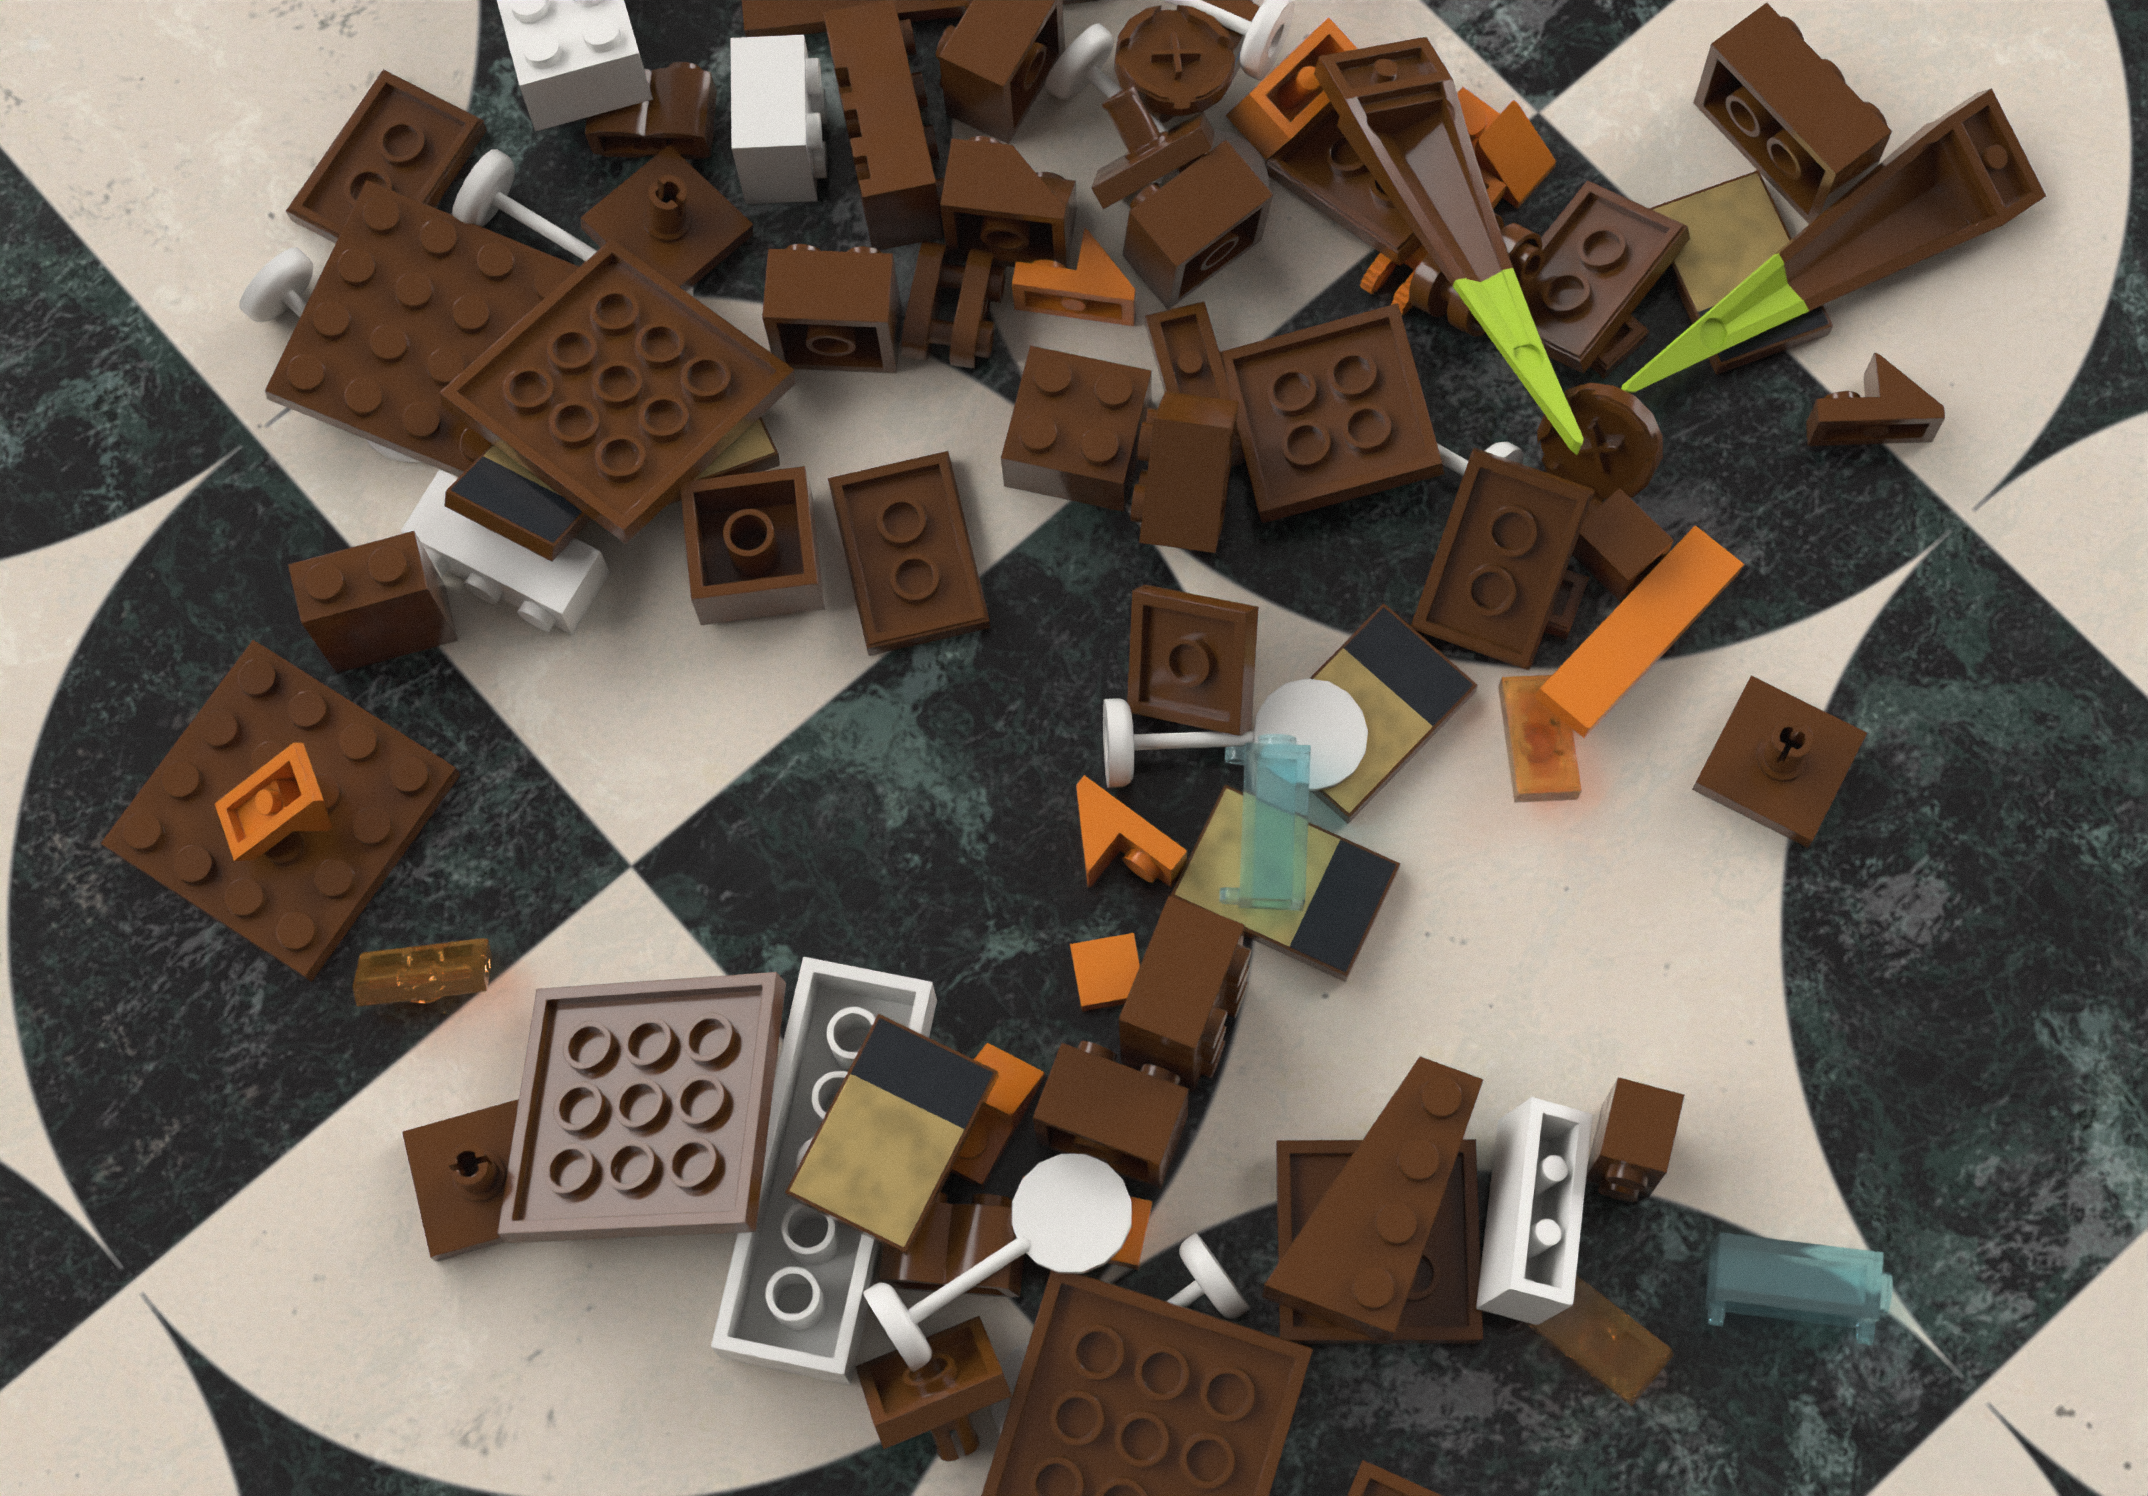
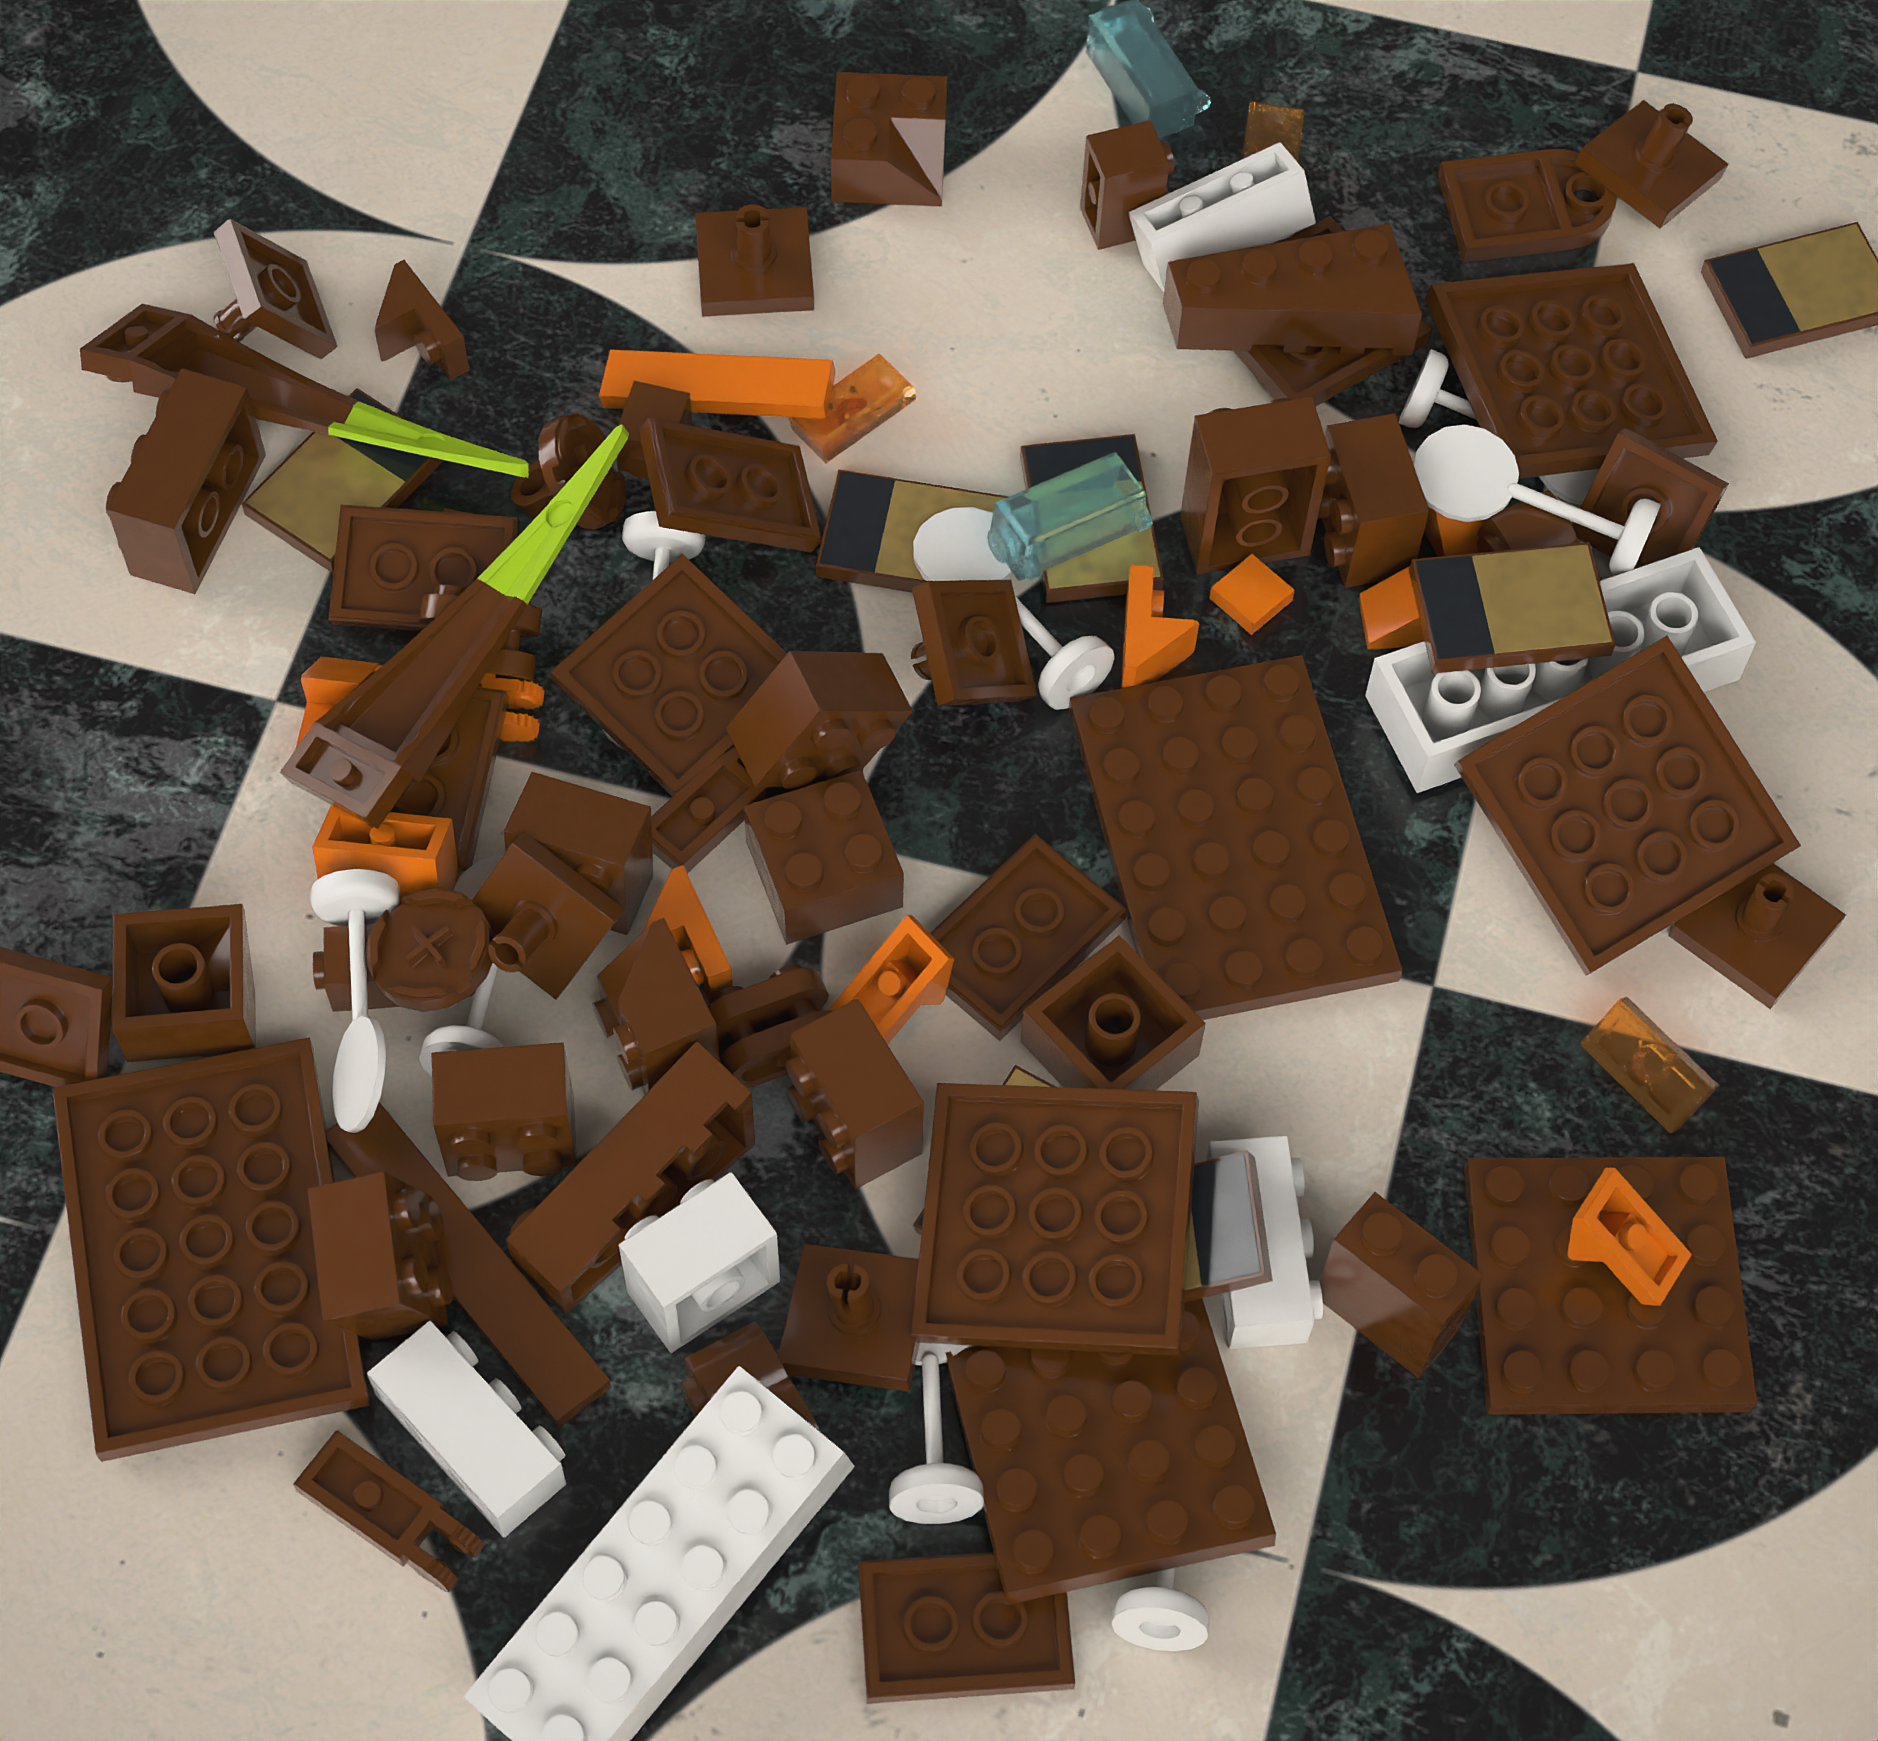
camera: 130 degrees left, 10 degrees down
(878, 788) = (1234, 838): none -> reddish brown plate
(916, 411) = (900, 978): none -> orange slope
(1847, 963) = (888, 139): none -> reddish brown slope
(1976, 292) = (271, 292): none -> reddish brown tile

